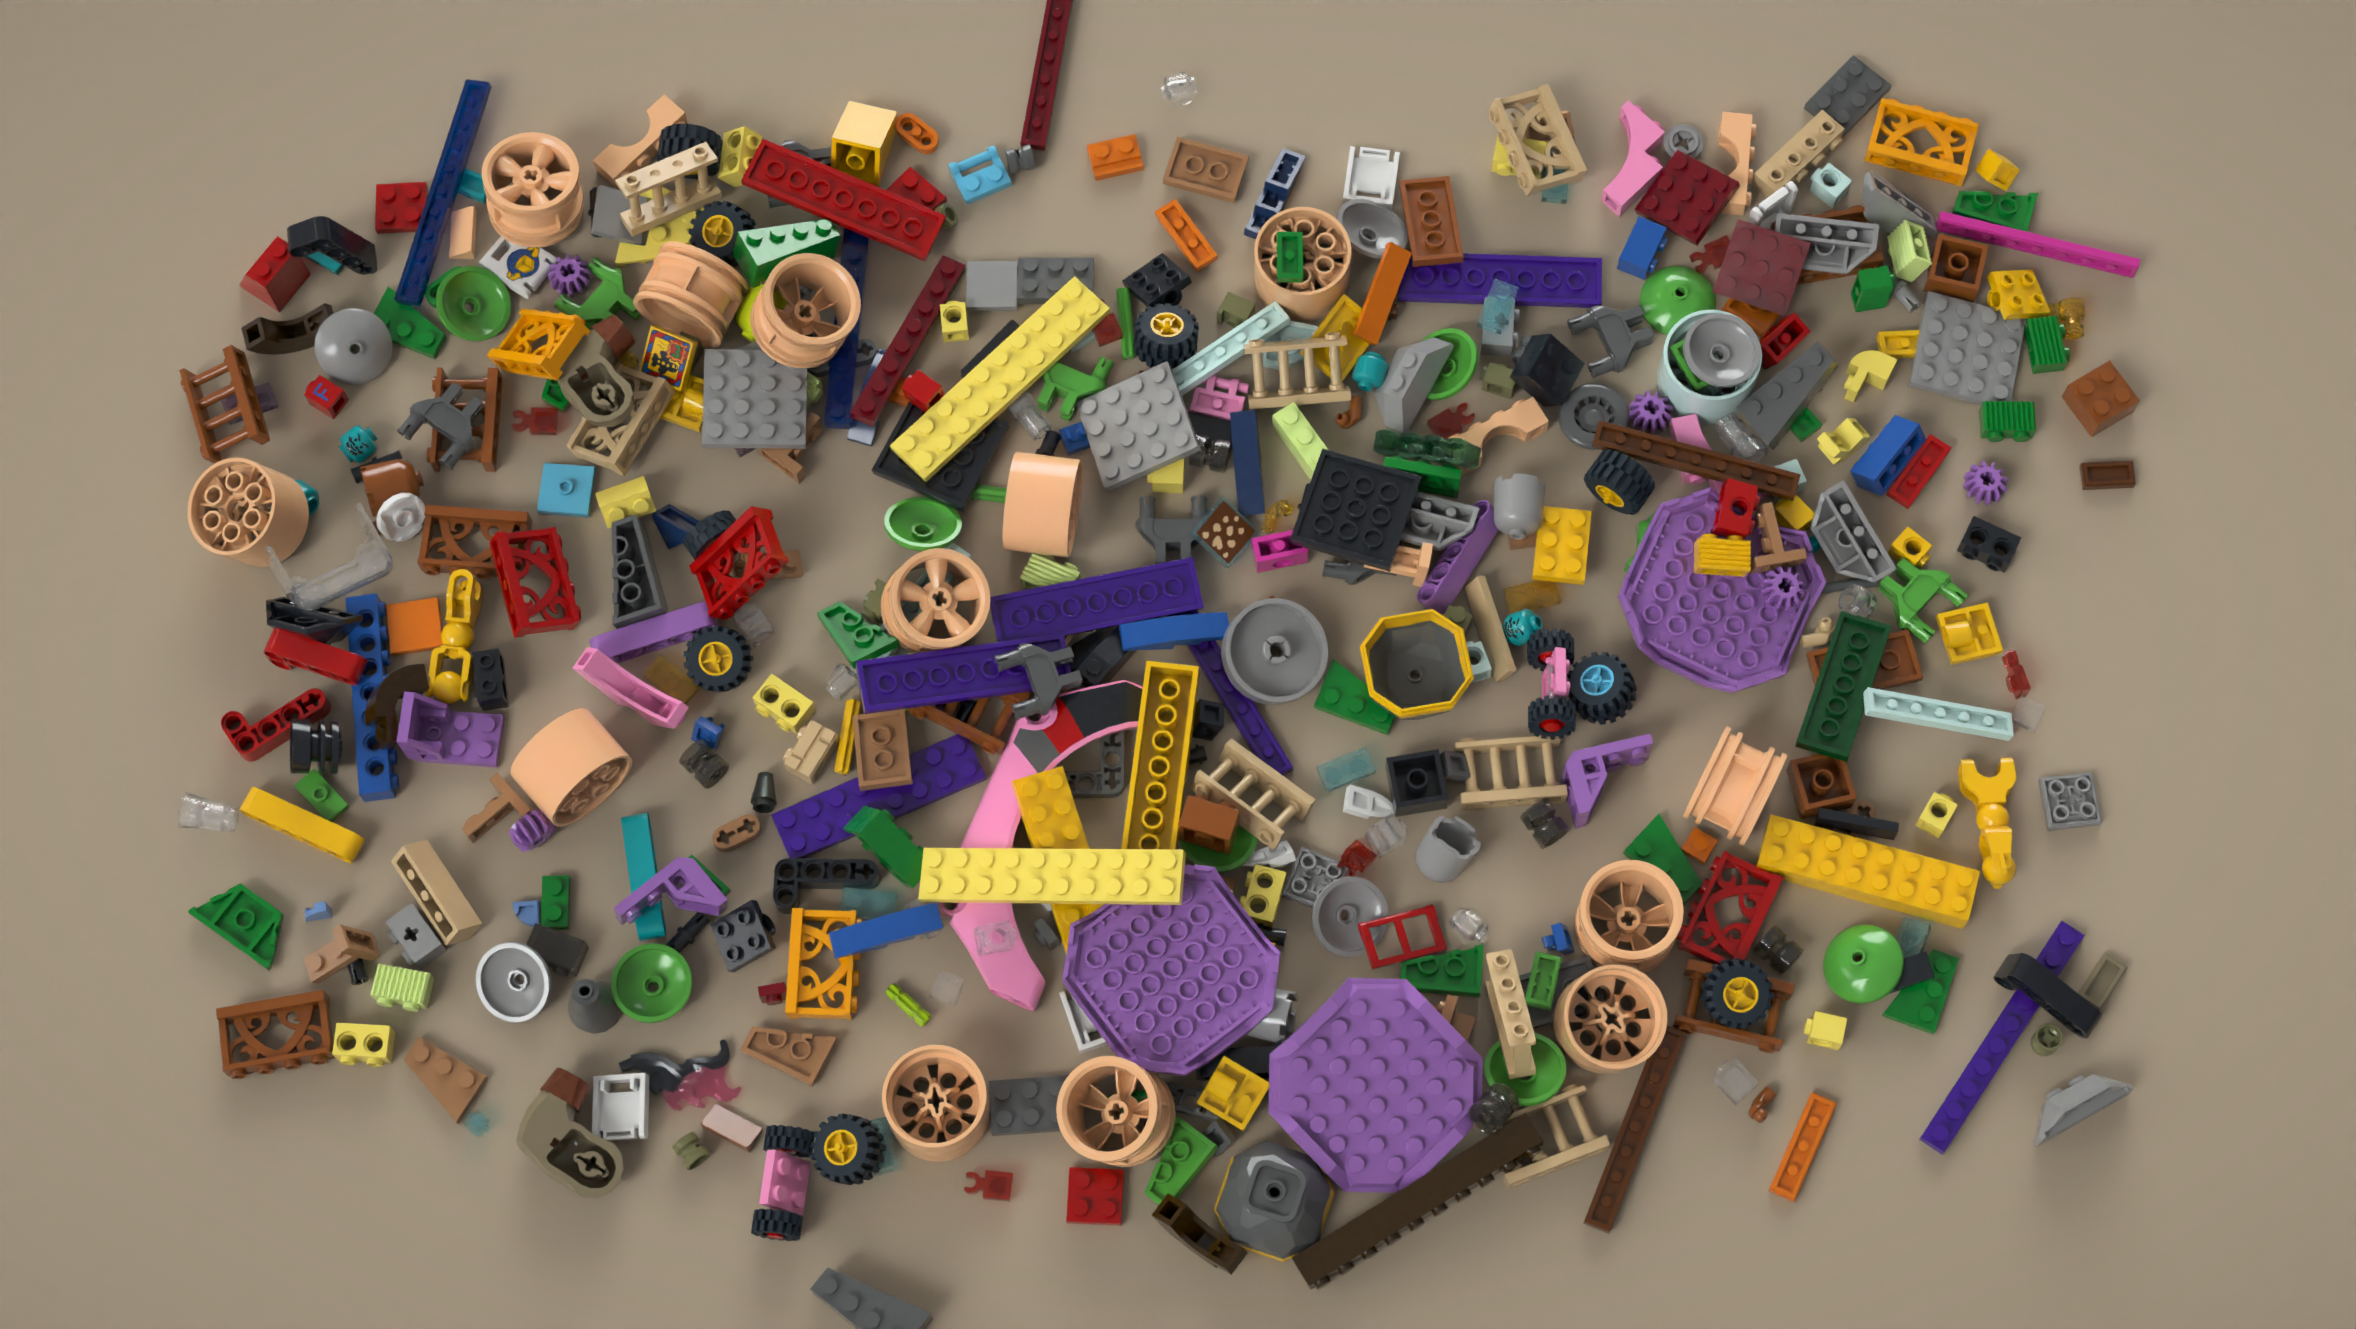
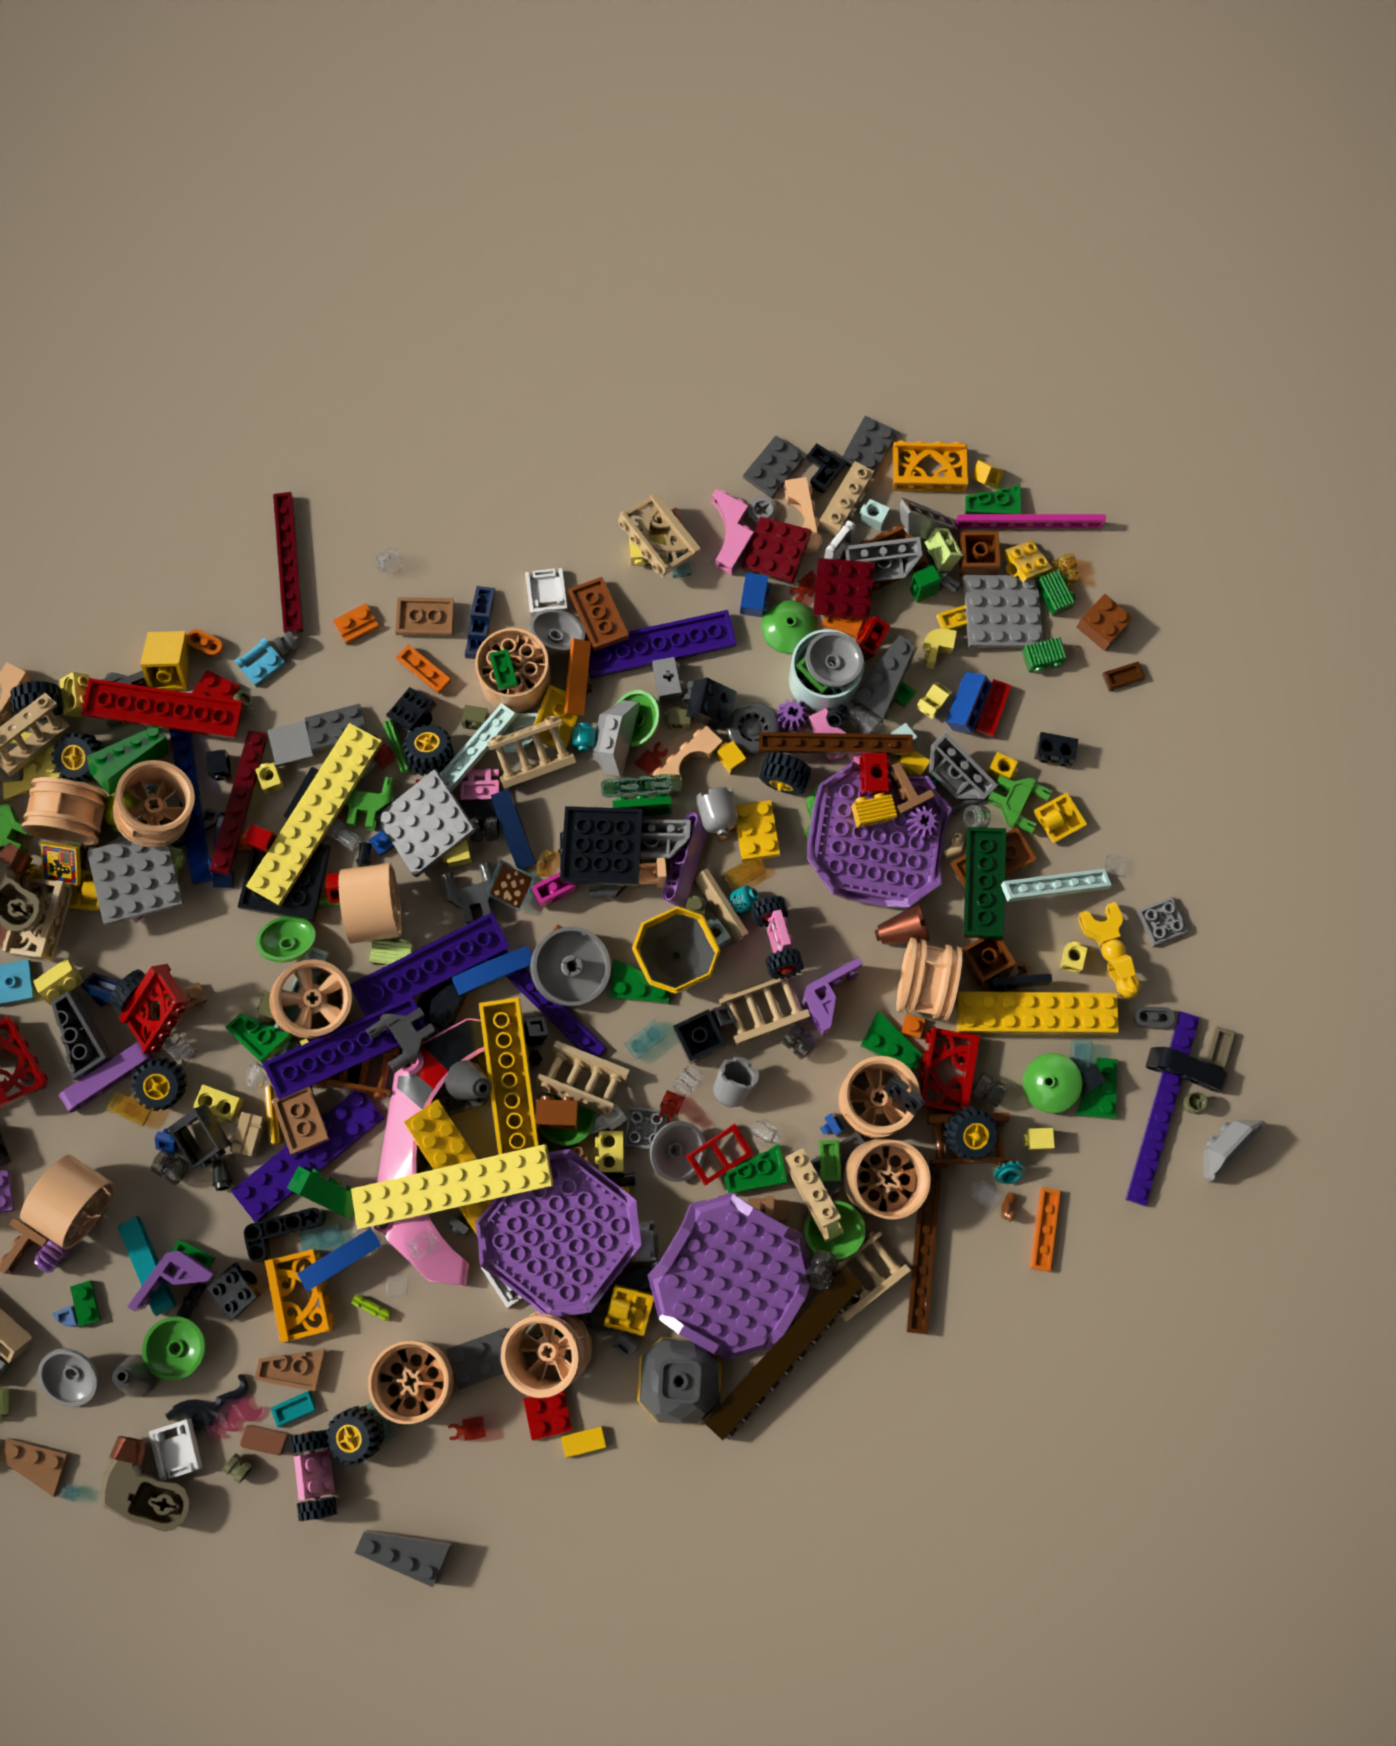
camera: 20 degrees left, 5 degrees up
(558, 949) = (95, 1341): clear smoke brick -> none
(629, 690) = (98, 1126): bright pink arch -> none
(732, 739) = (187, 1142): none -> black window
(733, 828) = (205, 1208): medium nougat beam -> none
(773, 993) = (267, 1329): dark red plate -> none
(778, 1100) = (293, 1408): none -> teal tile
(785, 458) = (170, 915): medium nougat bracket -> none
(894, 288) = (218, 764): none -> black brick
(999, 477) = (332, 887): none -> red brick
(1104, 756) = (467, 1081): none -> dark grey cone
(1131, 1242) = (583, 1441): none -> yellow tile
(1180, 1162) = (603, 1373): bright green wing -> none
(1198, 1236) = (632, 1425): dark brown arch -> none
(1298, 437) = (546, 800): yellowish green brick -> none
(1353, 415) = (580, 772): dark orange arm -> none
(1366, 803) = (667, 1061): white plate -> none
(1497, 306) = (663, 665): clear light blue plate -> none
(1554, 445) = (731, 756): none -> yellow brick
(1601, 687) = (813, 929): black wheel -> none
(1615, 335) = (752, 664): dark grey connector -> none
(1656, 912) = (910, 1101): none -> black hinge
(1707, 427) = (837, 716): none -> black cone
(1713, 91) = (773, 466): none -> dark grey plate
(1714, 715) = (904, 926): none -> copper cone
(1774, 1067) = (1009, 1172): none -> teal gear
(1786, 110) = (828, 465): none -> black brick
(1988, 492) = (1047, 702): medium lavender gear -> none
(2016, 678) = (1102, 843): clear red plate -> none
(2023, 916) = (1153, 1017): none -> dark grey plate

